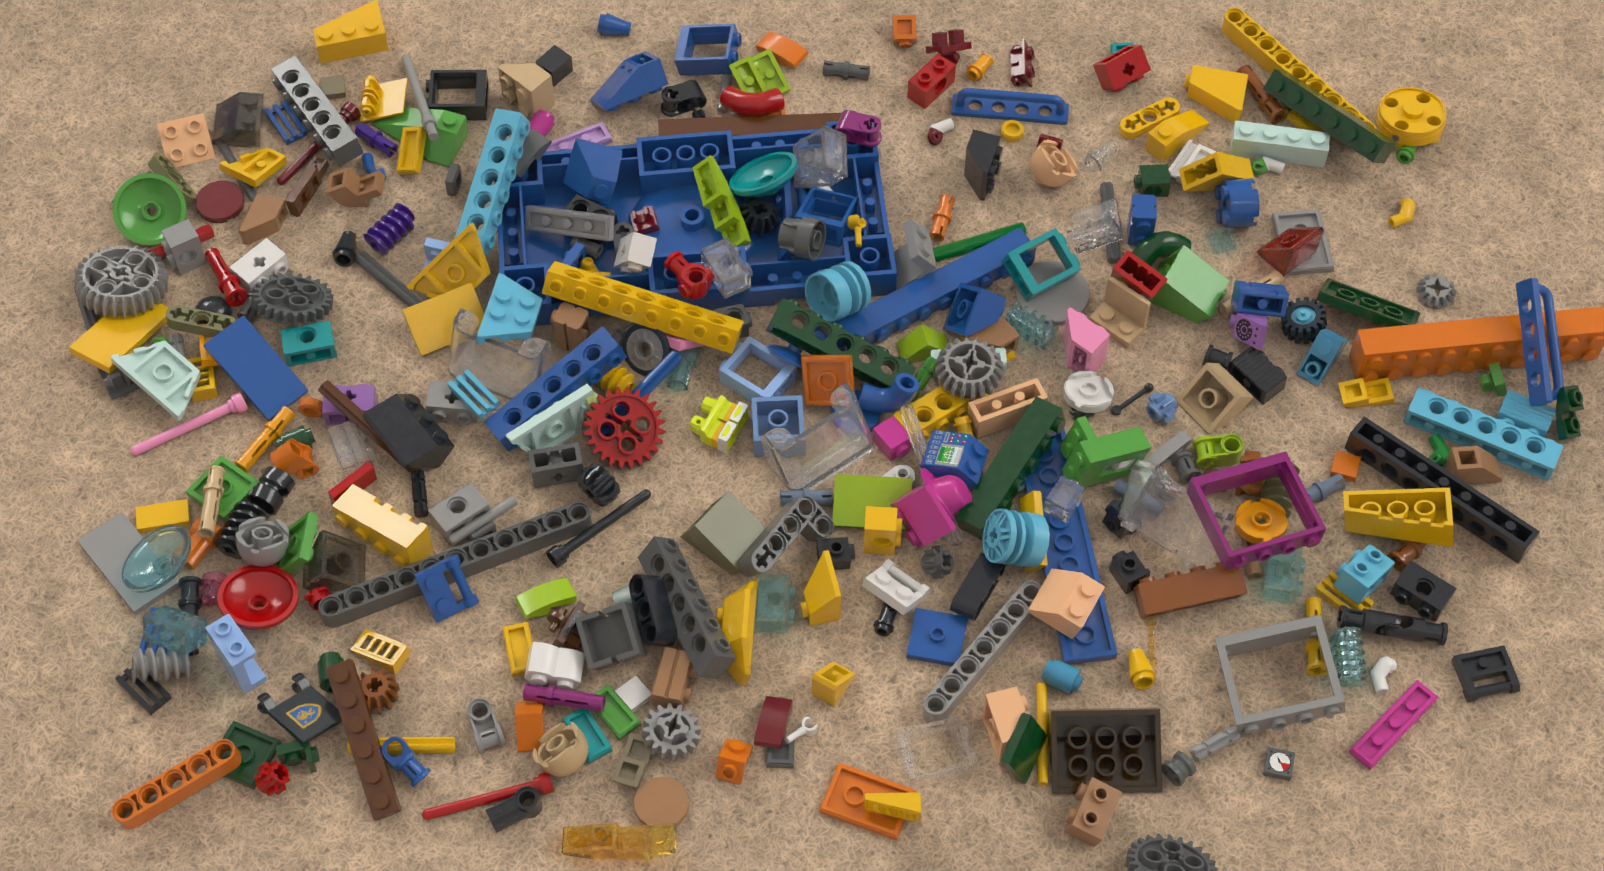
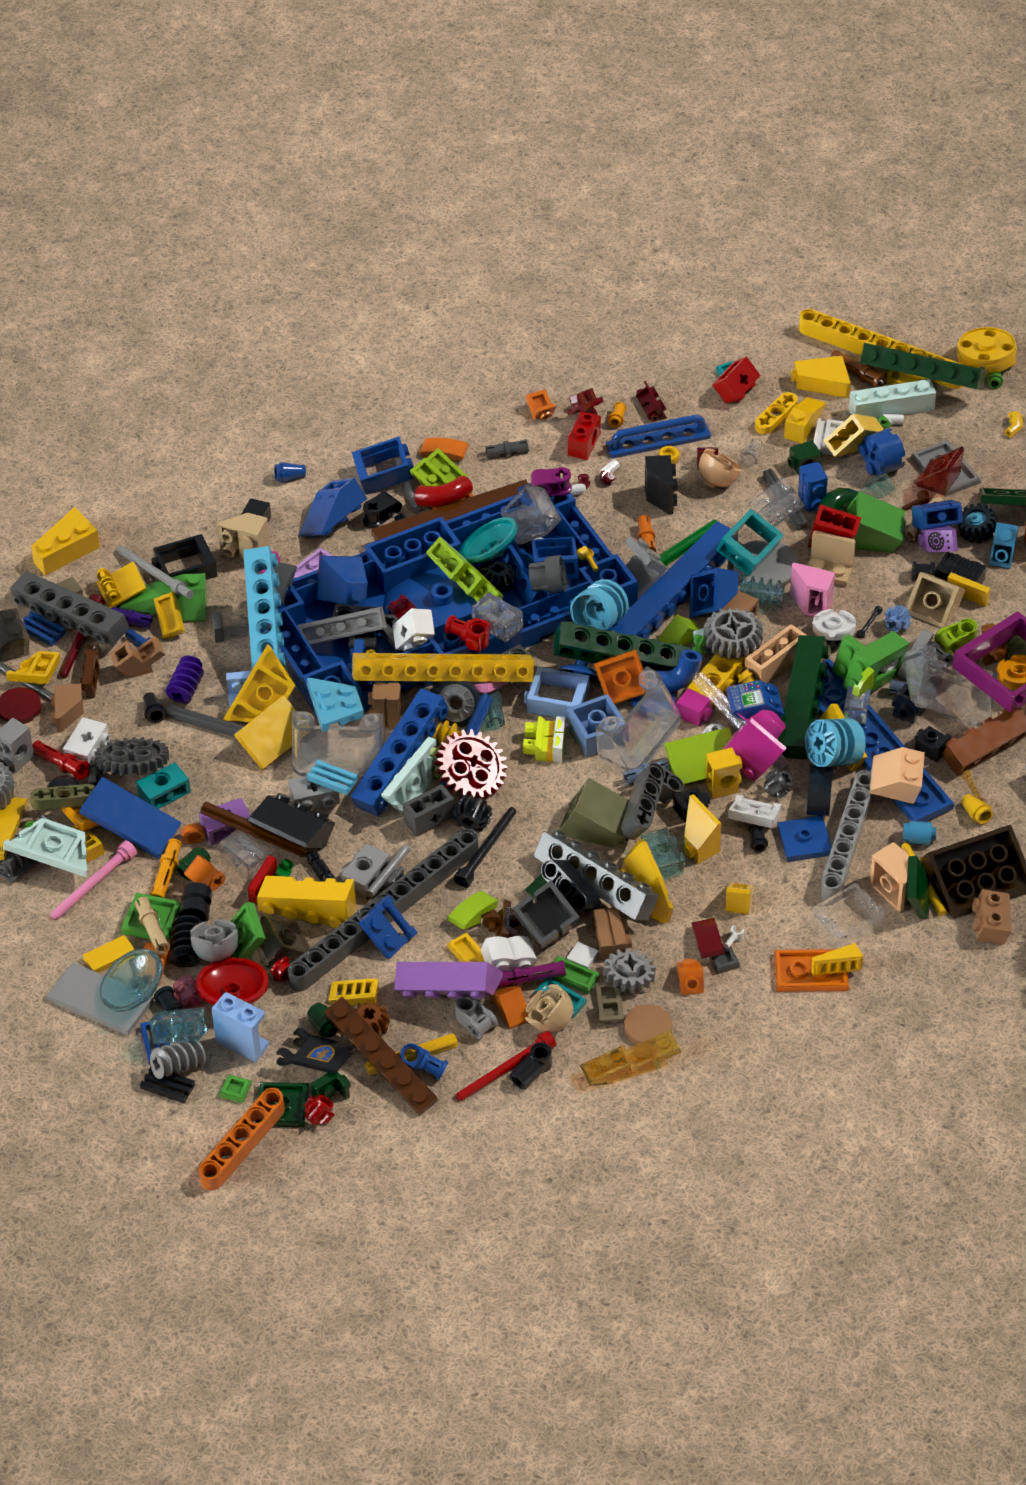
camera: 20 degrees left, 10 degrees down
(207, 718) = (235, 1088): none -> bright green tile
(380, 483) = (284, 868): none -> green arm
(469, 677) = (446, 979): none -> medium lavender slope
(900, 139) = (582, 484): none -> arm
(1079, 480) = (866, 682): none -> lime tile
(1259, 272) = (923, 498): none -> reddish brown hand
(1261, 400) = (974, 591): none -> yellow tile

